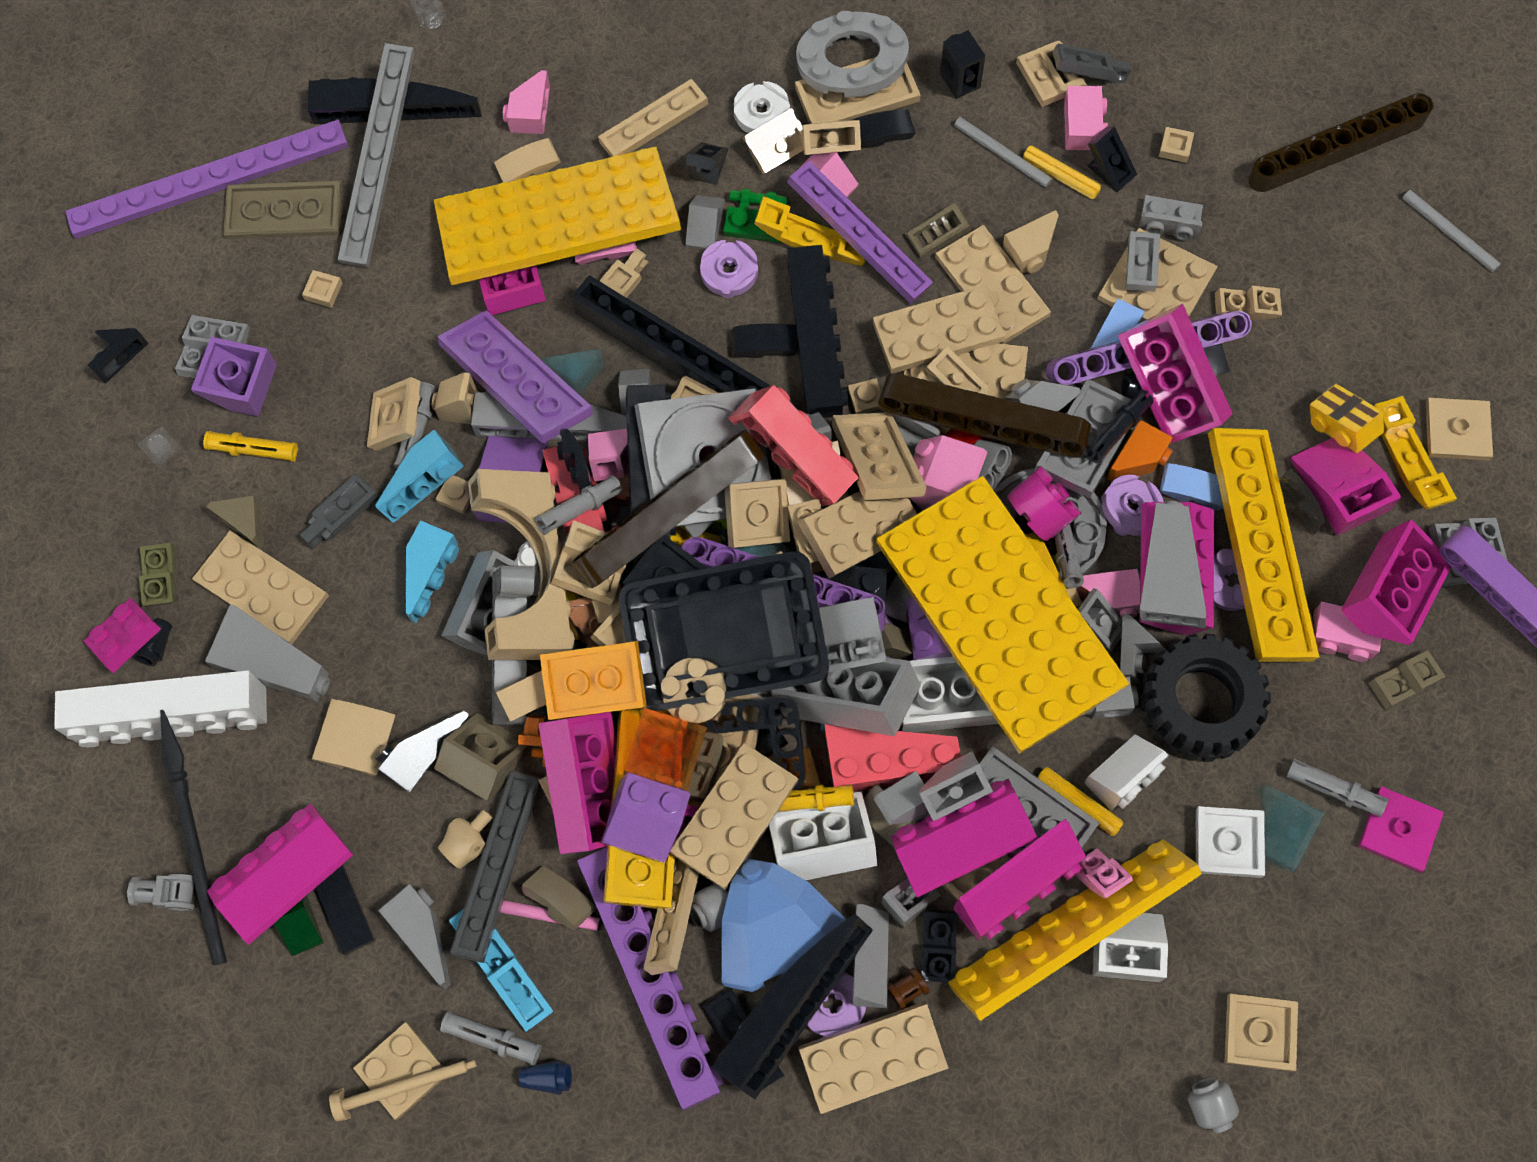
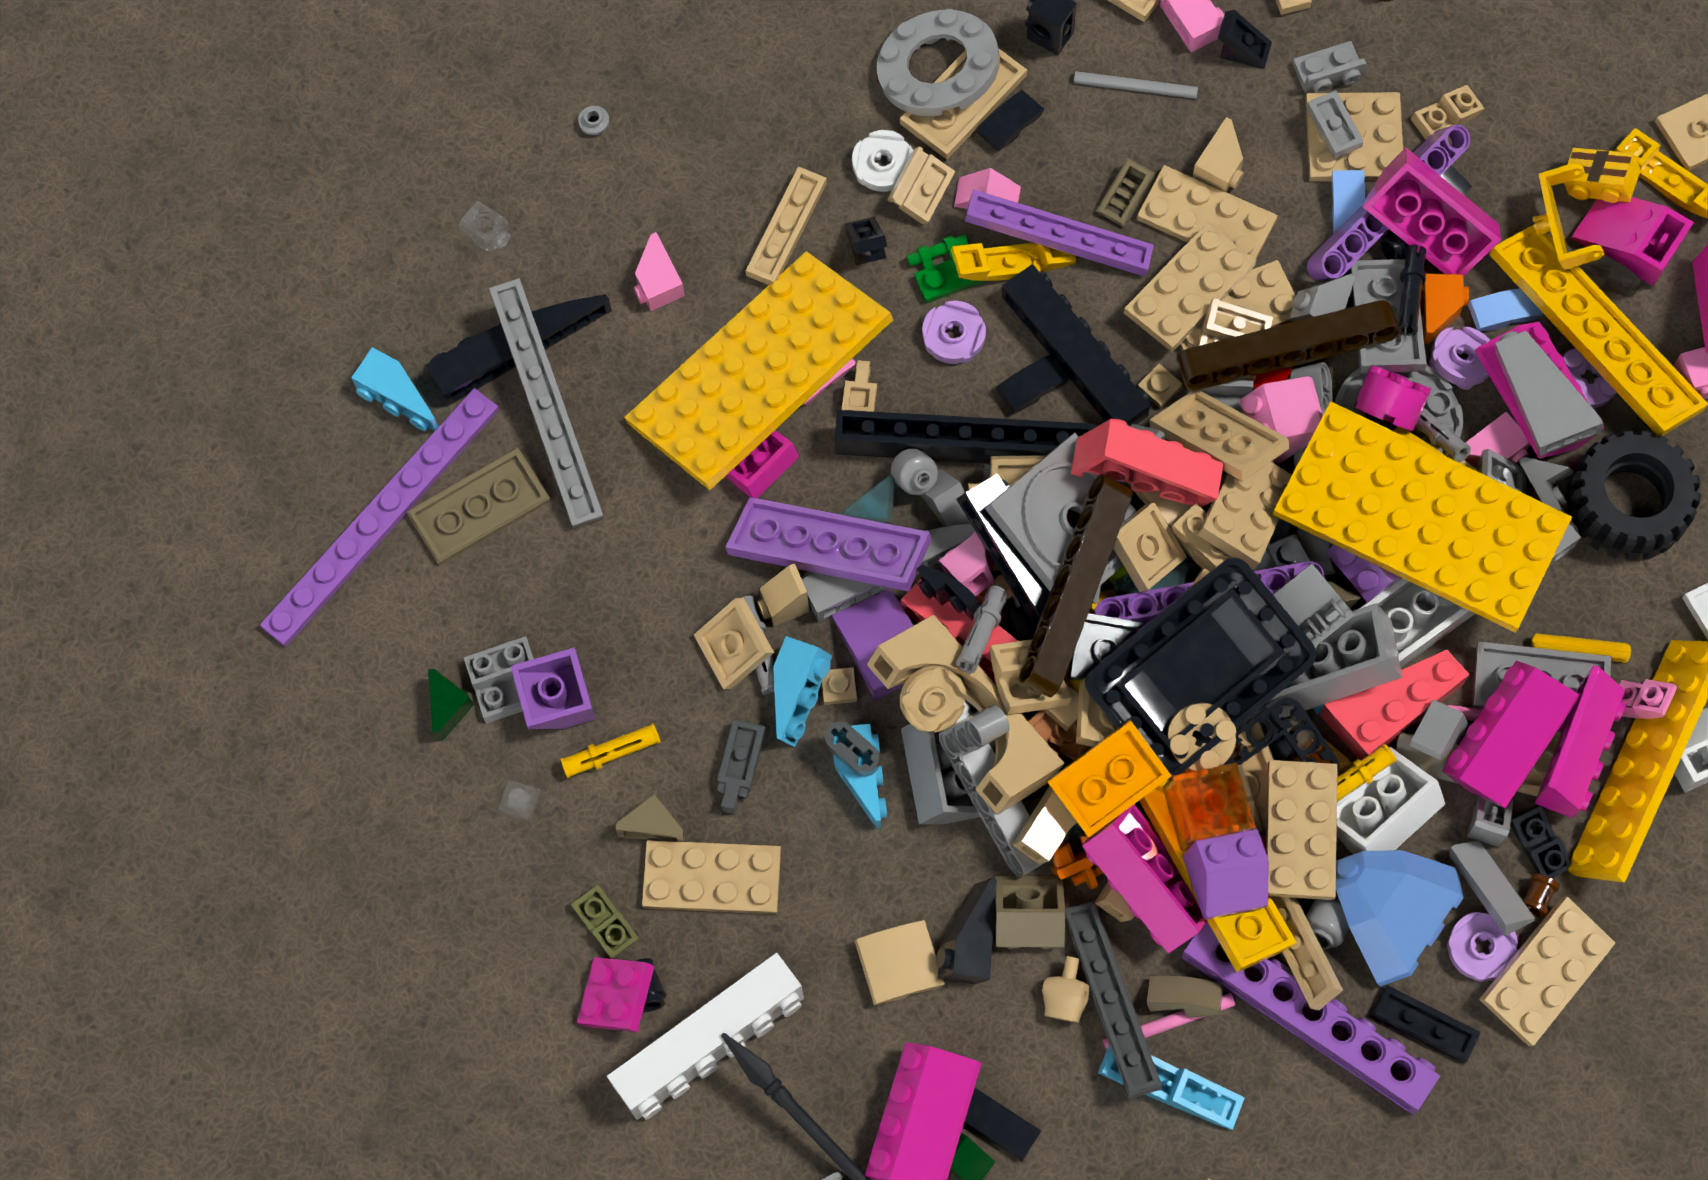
camera: 30 degrees left, 0 degrees up
(120, 349) = (415, 725): black slope -> none
(153, 343) = (447, 704): none -> dark green slope
(251, 646) = (749, 936): light grey slope -> none
(281, 88) = (387, 382): none -> medium azure slope
(322, 288) = (574, 562): tan plate -> none
(418, 927) = (1076, 1096): light grey slope -> none
(430, 543) = (847, 754): none -> dark grey beam
(501, 537) = (933, 699): none -> tan tile
(527, 160) = (690, 331): tan slope -> none
(527, 1052) = (1246, 1144): light grey pin -> none
(547, 1077) = (1278, 1156): dark blue cone -> none
(620, 356) = (914, 471): none -> light grey head
(703, 221) = (901, 299): light grey slope -> none
(788, 1008) = (1454, 971): black slope -> none
(831, 136) = (976, 153): tan slope -> none
(954, 786) = (1479, 691): light grey slope -> none
(1062, 172) = (1203, 76): yellow axle -> none
(1120, 776) = (1608, 598): white slope -> none
(1278, 433) = (1551, 222): none -> yellow piece

